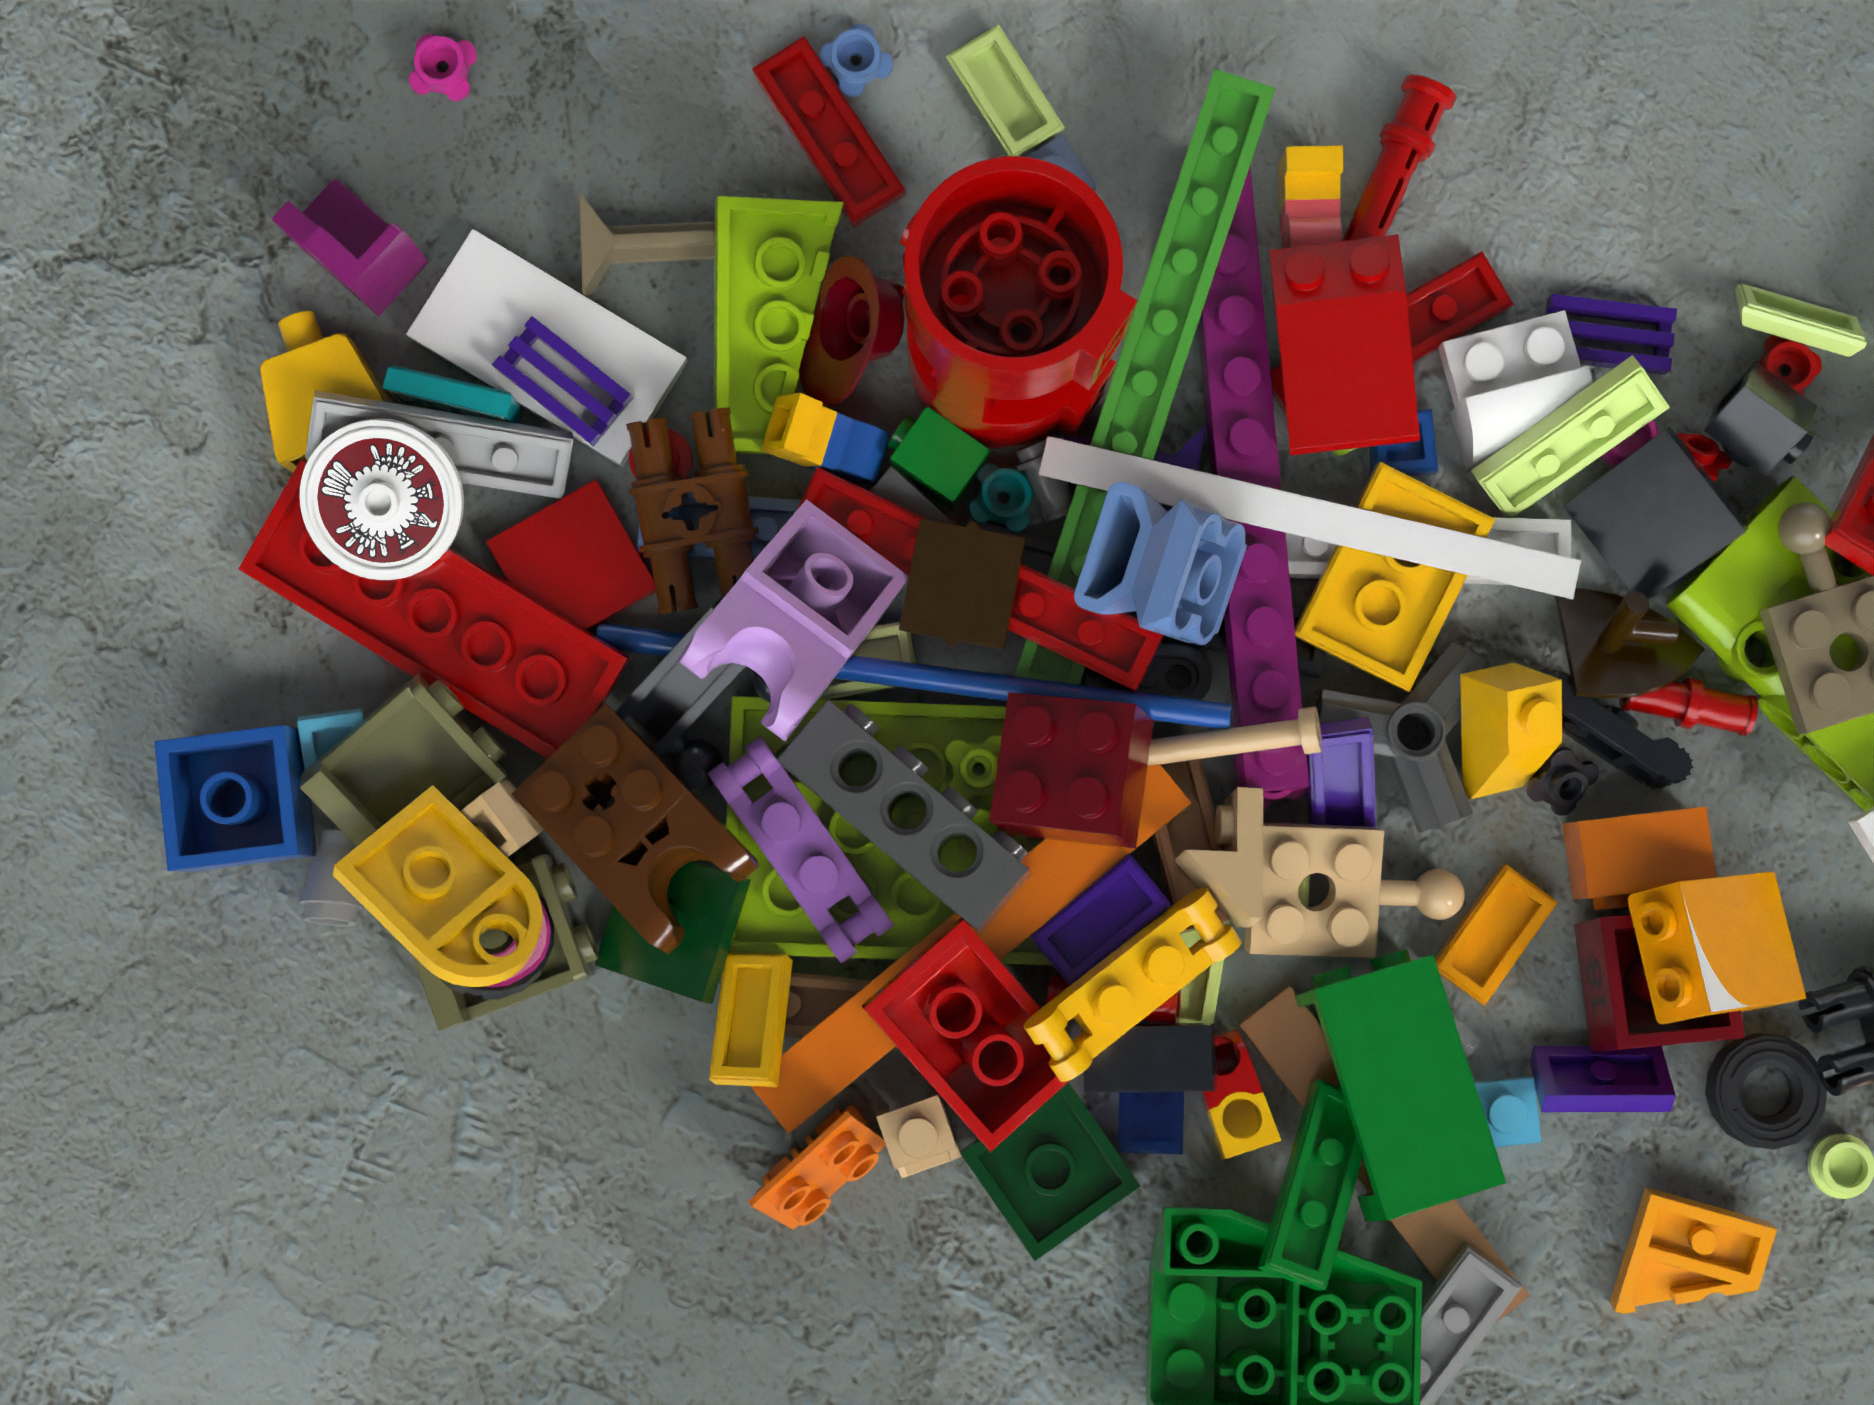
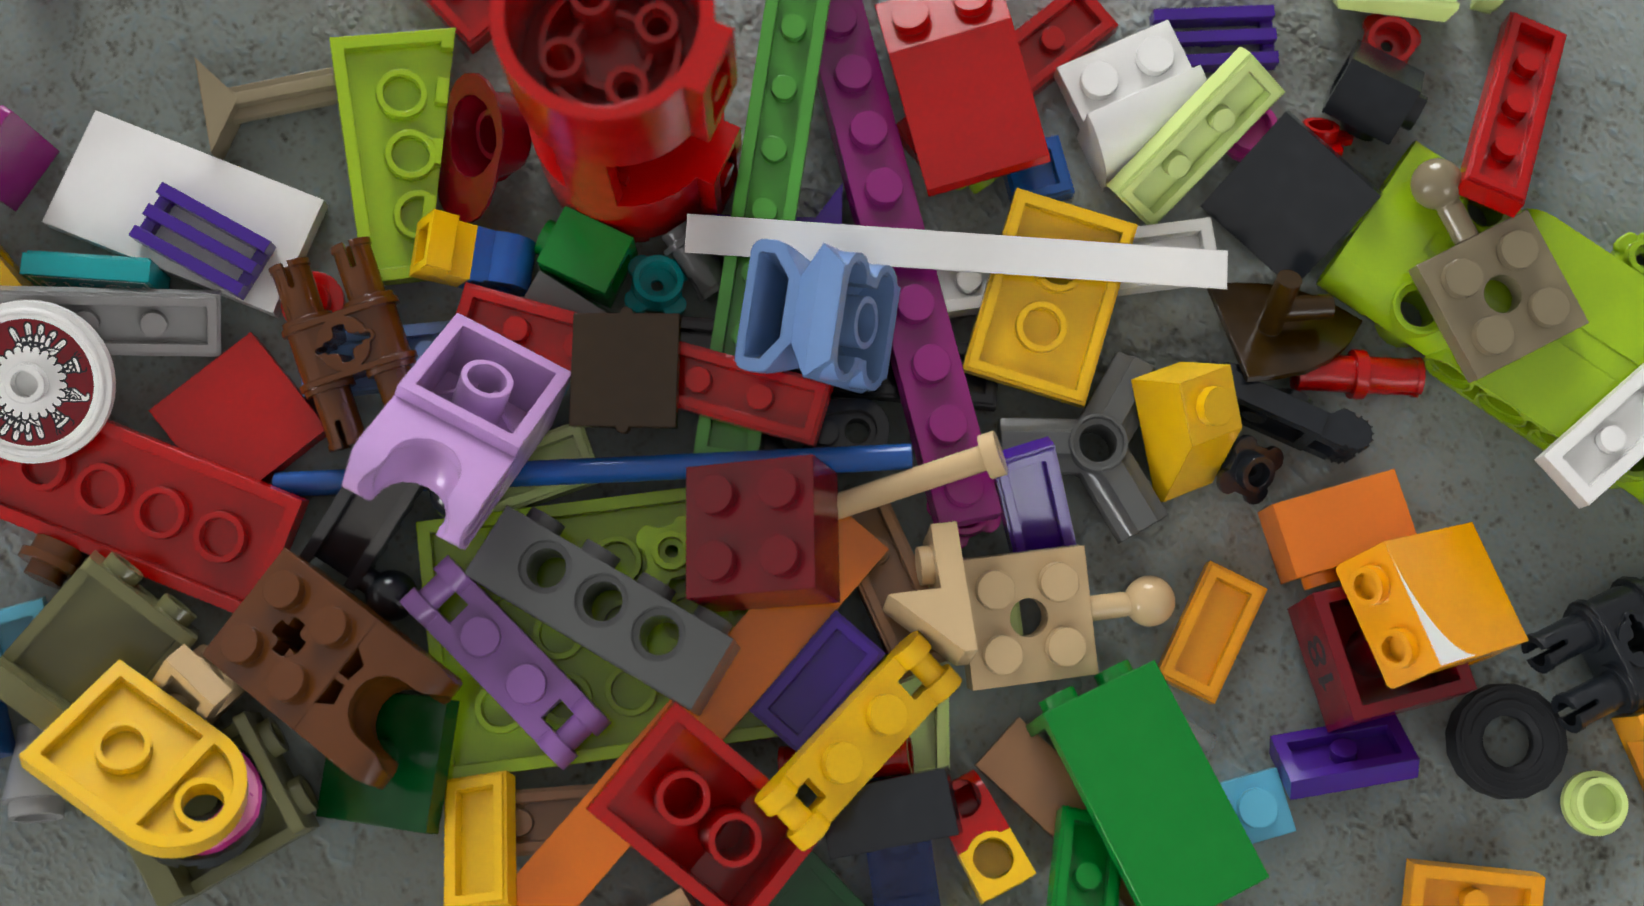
camera: 15 degrees left, 5 degrees down
(374, 675) = (50, 560): none -> reddish brown plate

